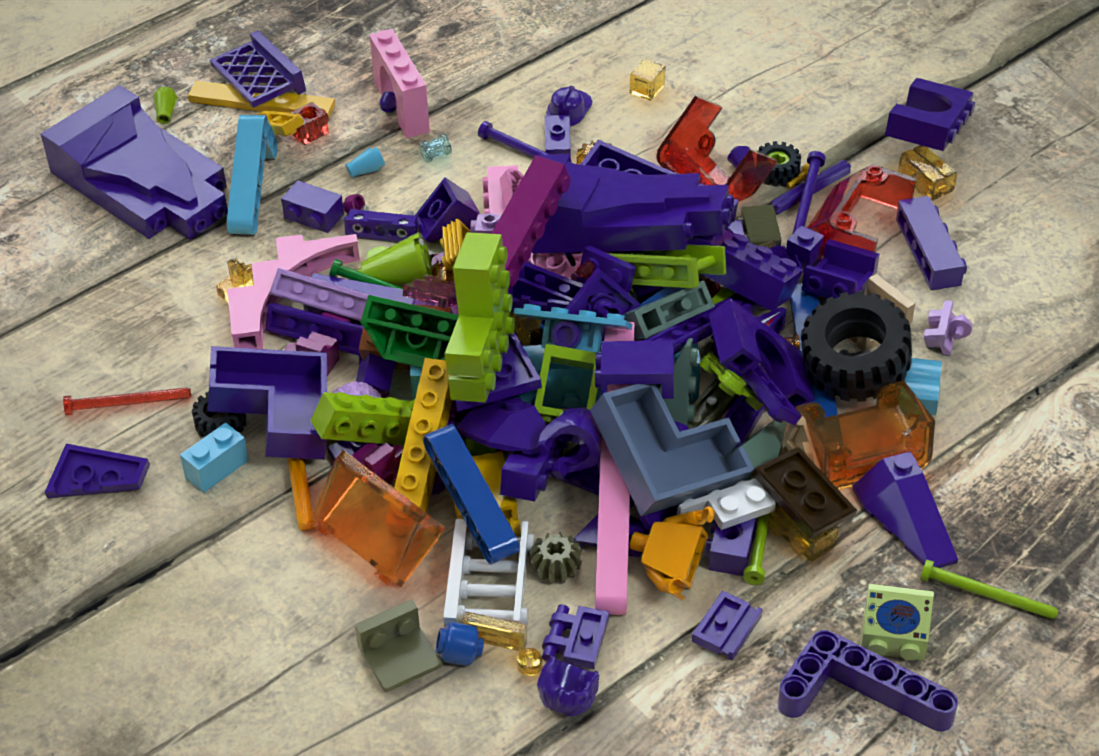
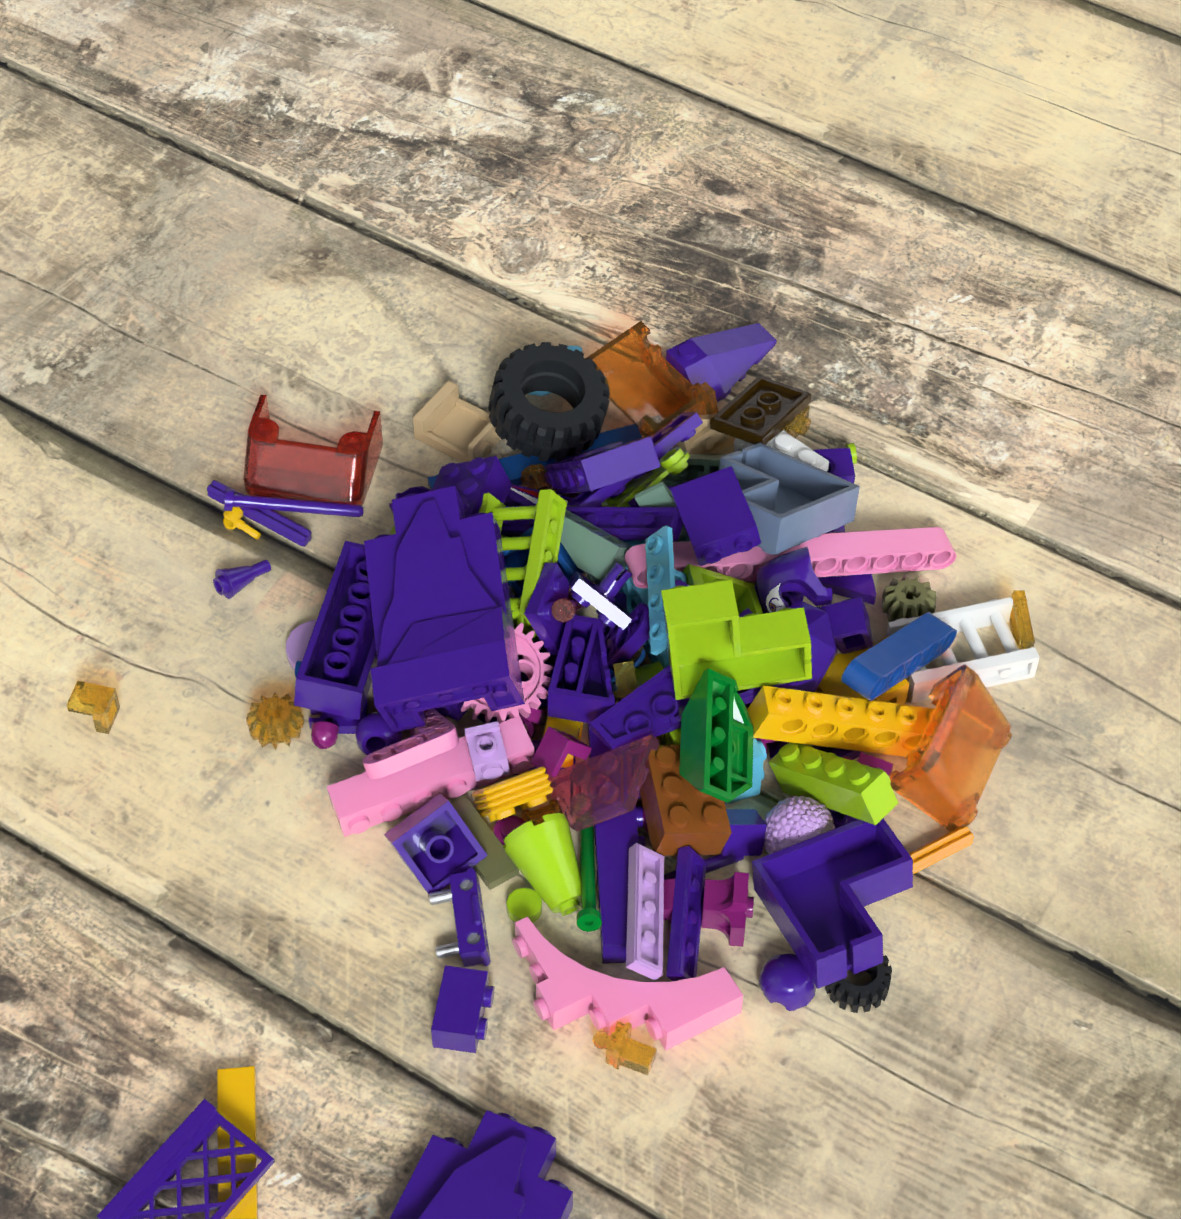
camera: 110 degrees left, 5 degrees up
(95, 471) = (998, 1077): dark purple wing -> none
(124, 399) = (911, 1153): clear red bar -> none
(214, 457) = (927, 949): medium azure brick -> none
(253, 145) = (428, 1084): medium azure beam -> none
(283, 122) = (310, 1111): yellow hinge -> none
(314, 124) = (289, 1092): clear red brick -> none
(353, 201) = (434, 964): magenta hinge -> none
(366, 162) = (349, 978): medium azure cone -> none
(388, 102) = (210, 997): dark purple hinge -> none
(396, 646) = (1081, 697): olive bracket -> none
(397, 73) = (151, 985): bright pink arch -> none
(435, 147) = (295, 906): clear light blue bush -> none
(459, 643) = (1054, 648): blue head -> none
(486, 130) = (240, 861): dark purple bar -> none
(529, 669) = (1035, 598): clear yellow hinge -> none
(530, 210) = (565, 660): magenta brick -> none
(557, 134) = (227, 781): plate -> none
(567, 687) = (1058, 548): dark purple hair -> none
(570, 102) = (158, 788): dark purple piece -> none
(584, 639) = (989, 558): dark purple plate -> none
(673, 550) = (878, 503): light orange torso -> none
(691, 142) = (269, 617): clear red windscreen -> none
(726, 625) = (919, 460): plate -> none
(760, 224) = (355, 529): olive brick -> none
(788, 160) = (214, 540): black bush -> none
(806, 245) = (379, 490): dark purple brick -> none
(840, 271) = (412, 454): dark purple panel -> none
(865, 678) = (935, 390): dark purple beam -> none
(897, 621) = (869, 340): yellowish green slope -> none
(930, 243) = (331, 393): brick -> none
(931, 114) = (86, 402): dark purple arch -> none
(931, 172) = (211, 412): clear yellow brick -> none
(946, 328) = (462, 359): lavender hips -> none
(986, 590) = (786, 336): lime bar -> none

